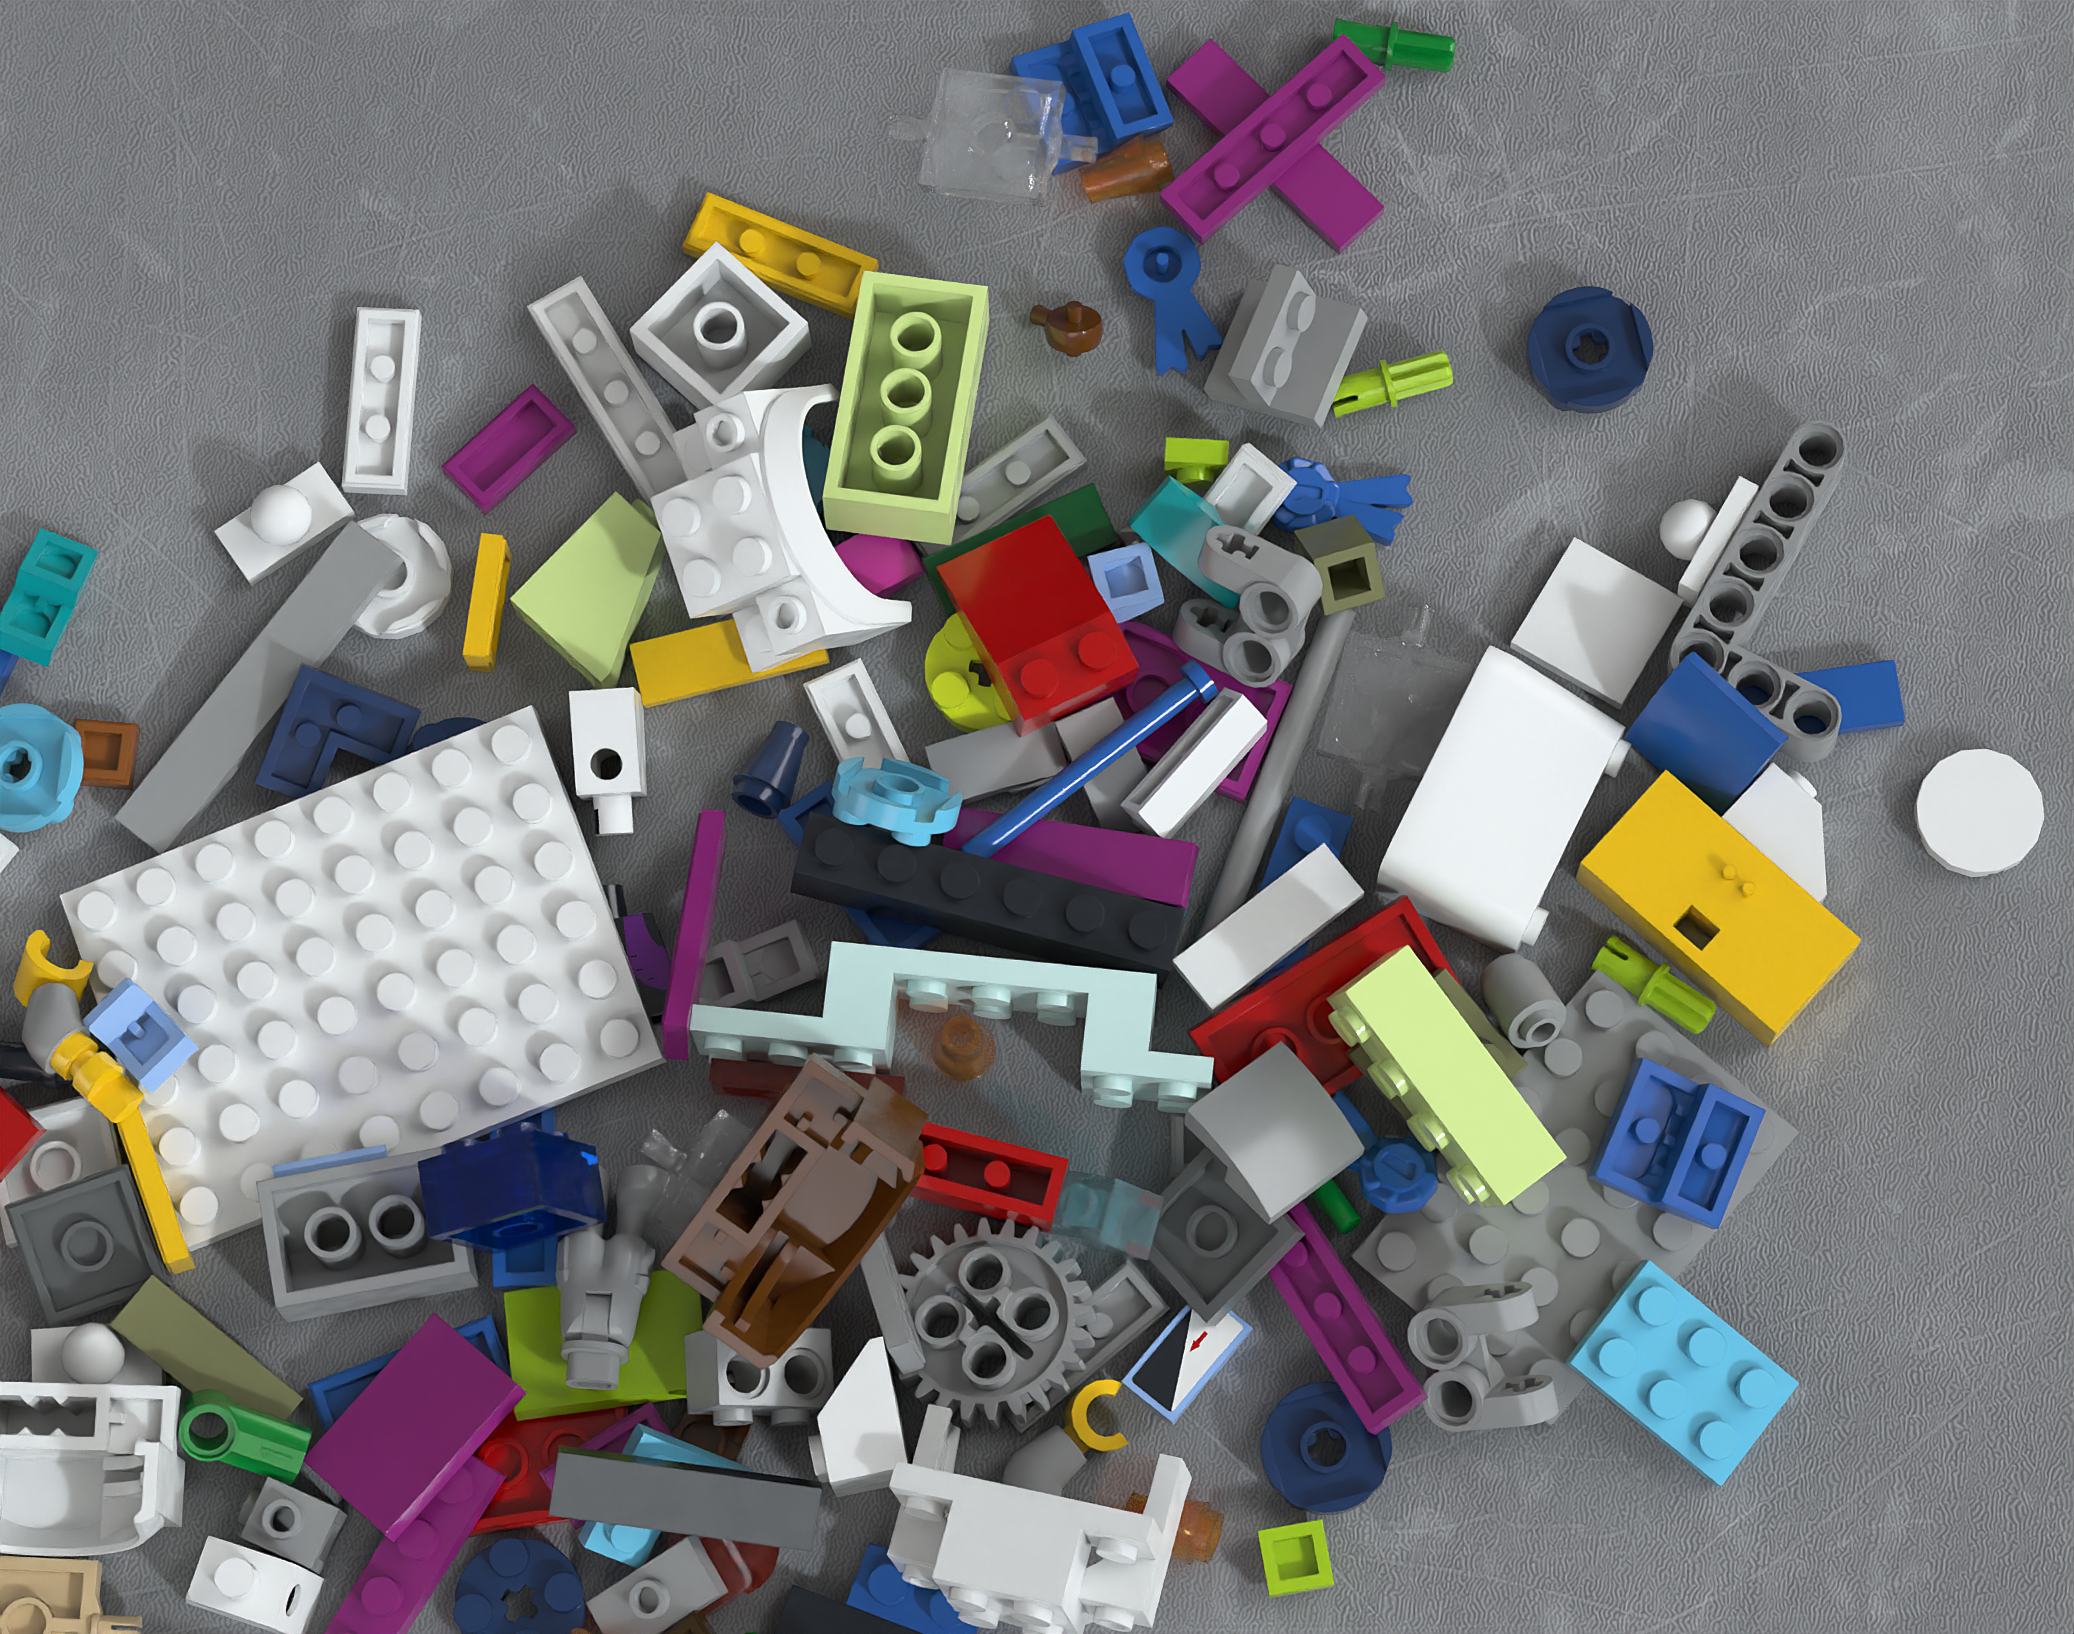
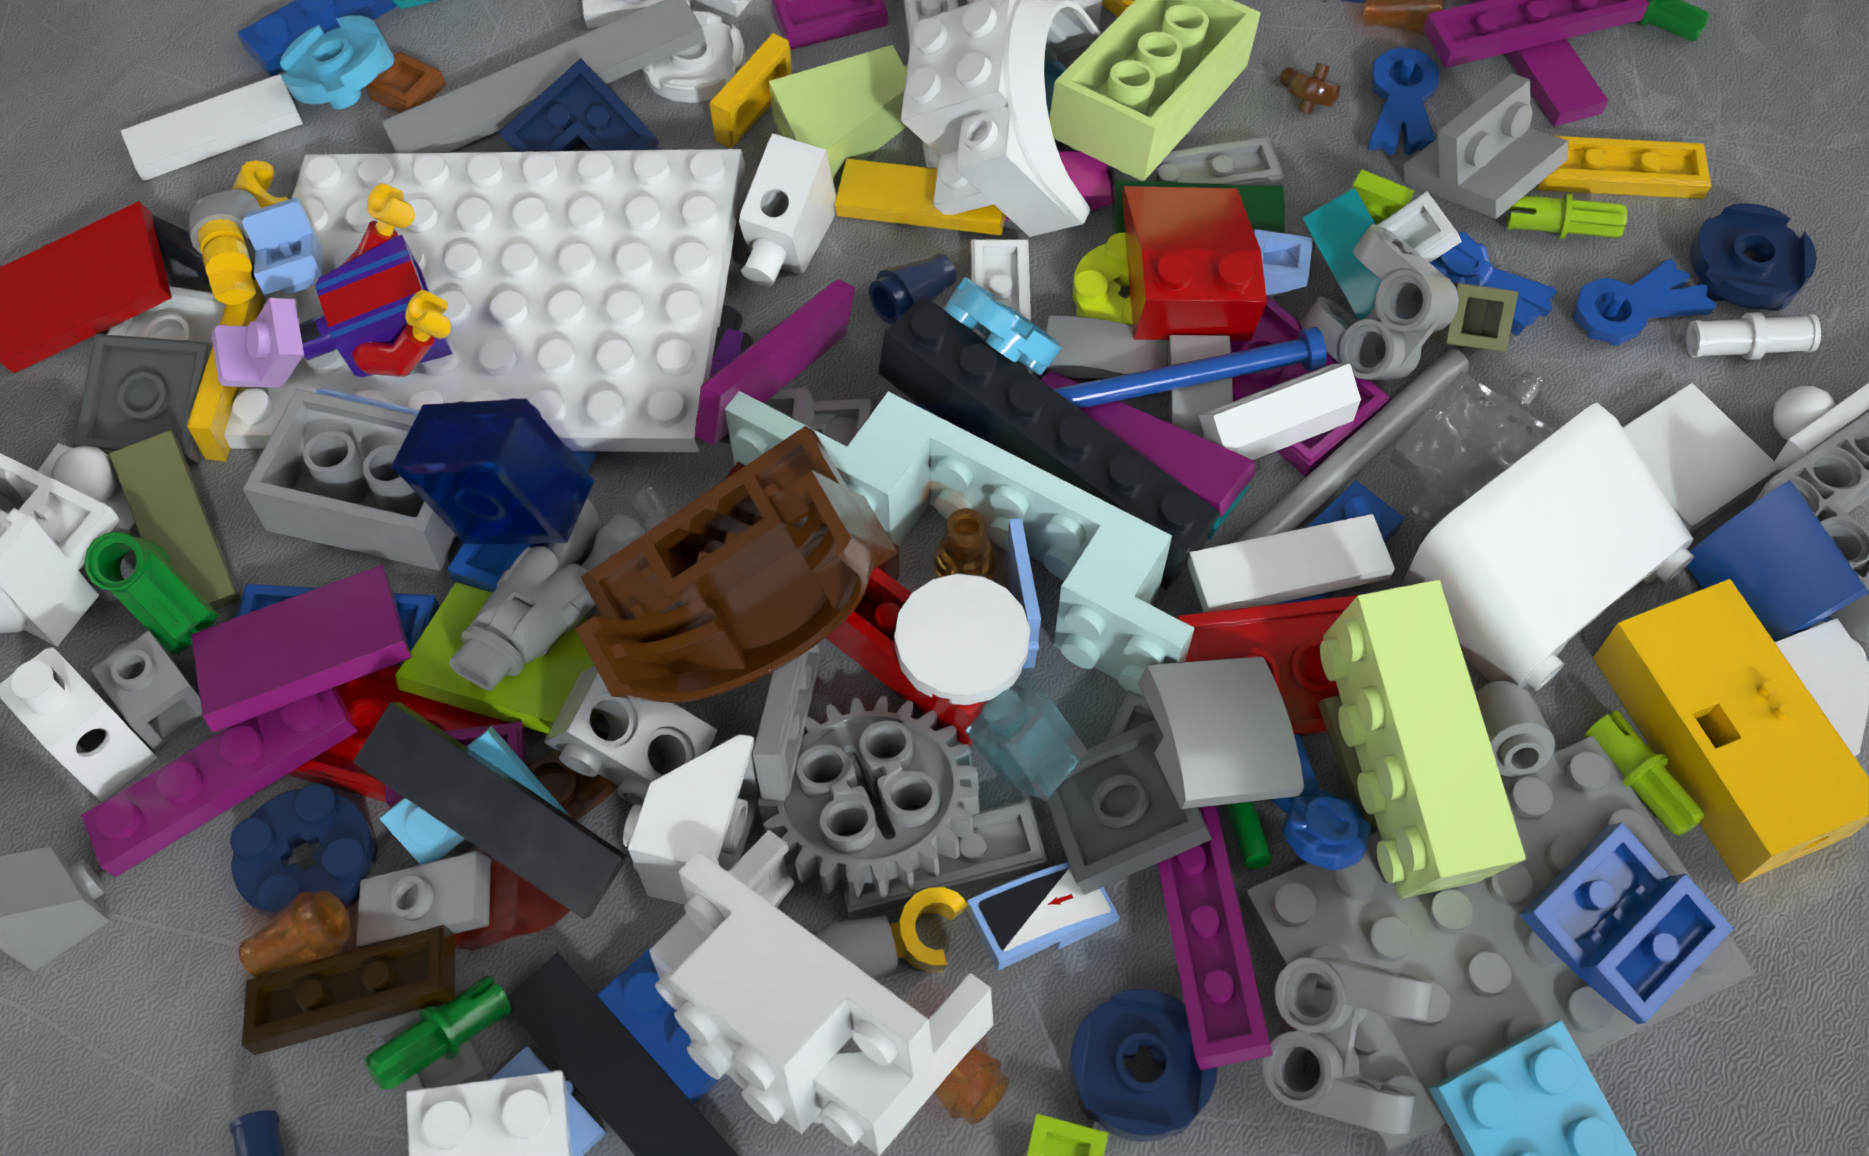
camera: 20 degrees right, 15 degrees down
(193, 1154) = (262, 351): none -> lavender bracket
(282, 1057) = (379, 300): none -> torso
(1013, 1154) = (962, 639): none -> white tile
(1038, 1070) = (1021, 584): none -> light blue piece
(1430, 280) = (1631, 168): none -> yellow tile
(1475, 475) = (1620, 311): none -> blue piece
(1616, 452) = (1753, 336): none -> white pin

